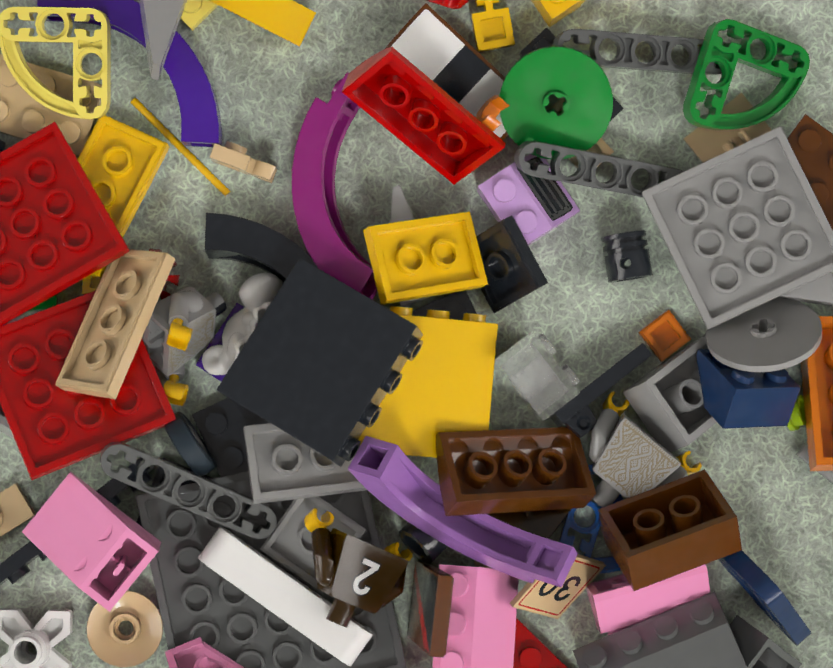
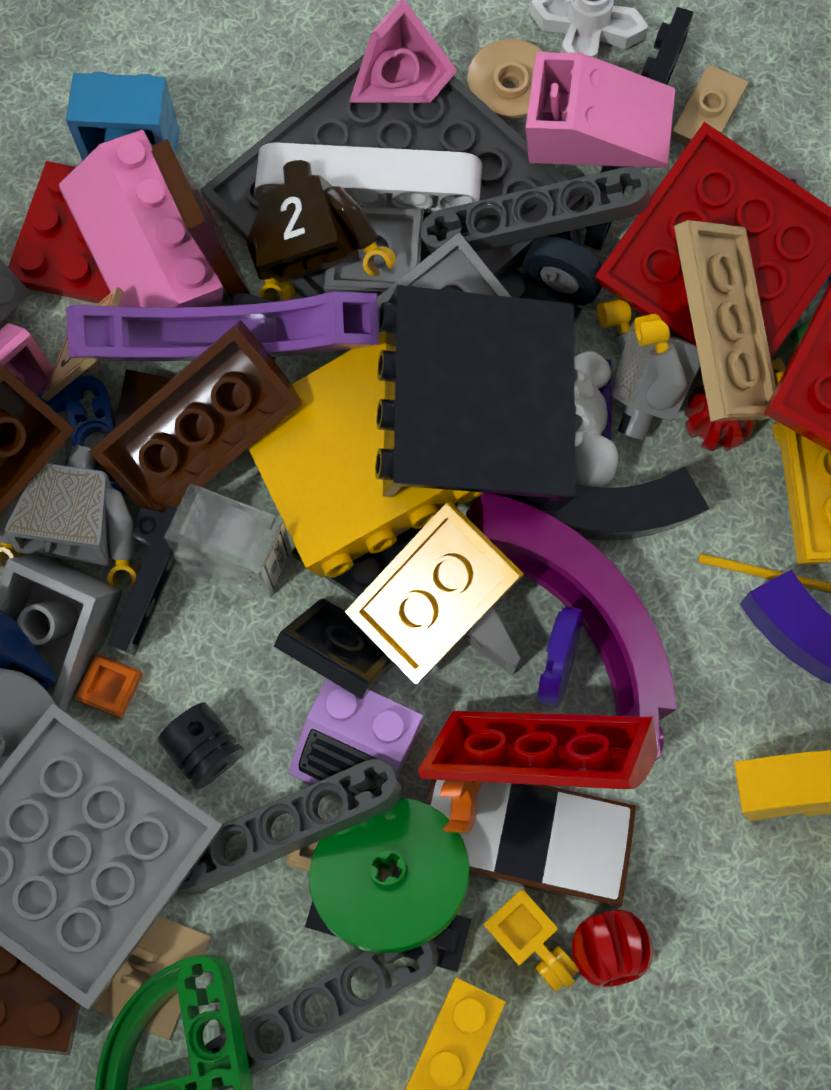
camera: 150 degrees right, 15 degrees down
(235, 157) = (718, 593): tan plate -> none
(366, 174) = (561, 656): none -> dark purple tile

